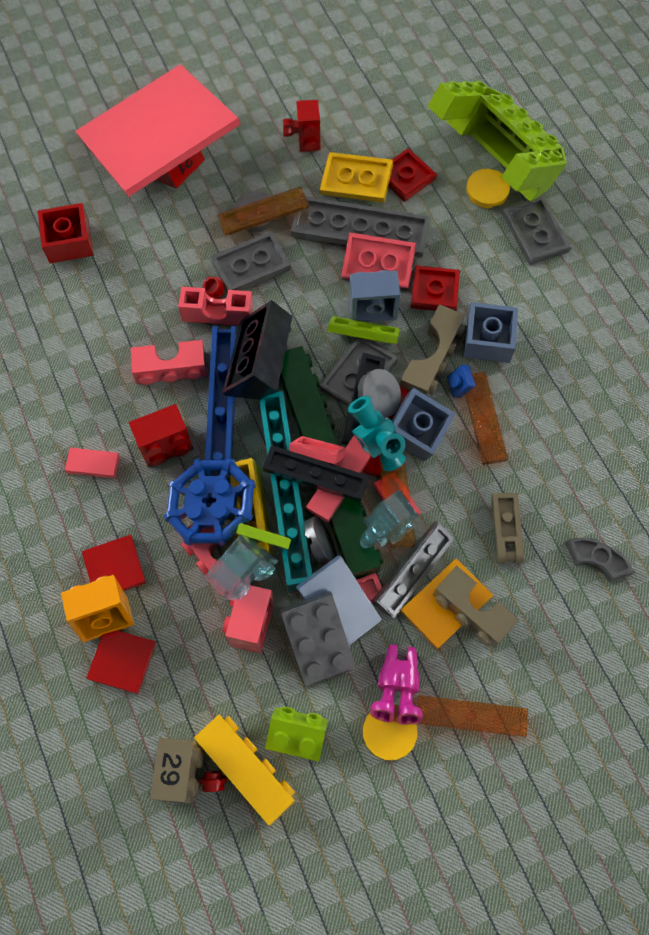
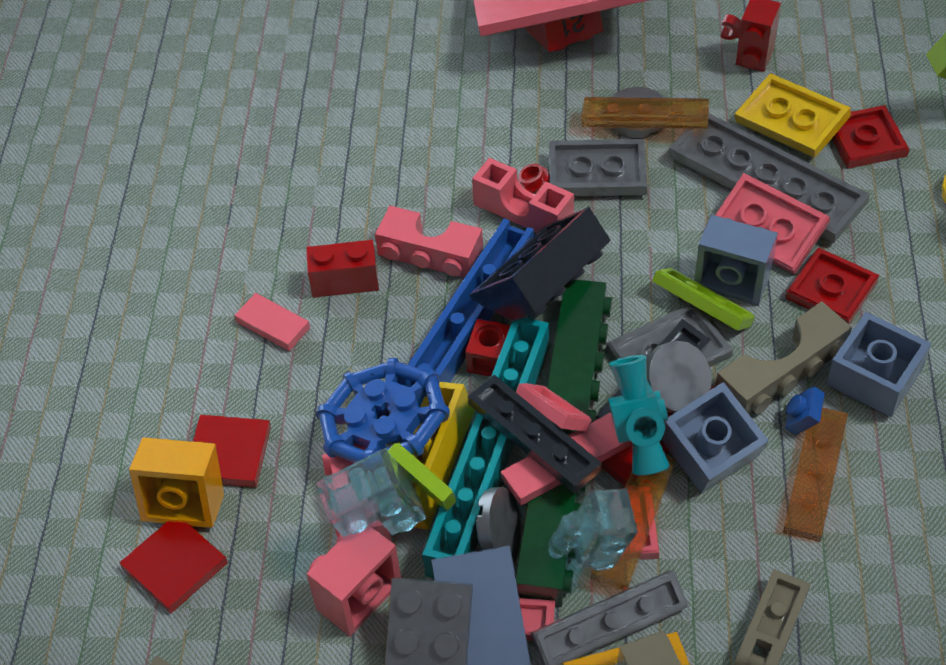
camera: 30 degrees right, 15 degrees down
(65, 233) = (387, 55): red brick -> none
(121, 405) = (342, 268): none -> red brick
(161, 435) = (368, 317): red brick -> none
(250, 430) = (480, 357): none -> red brick

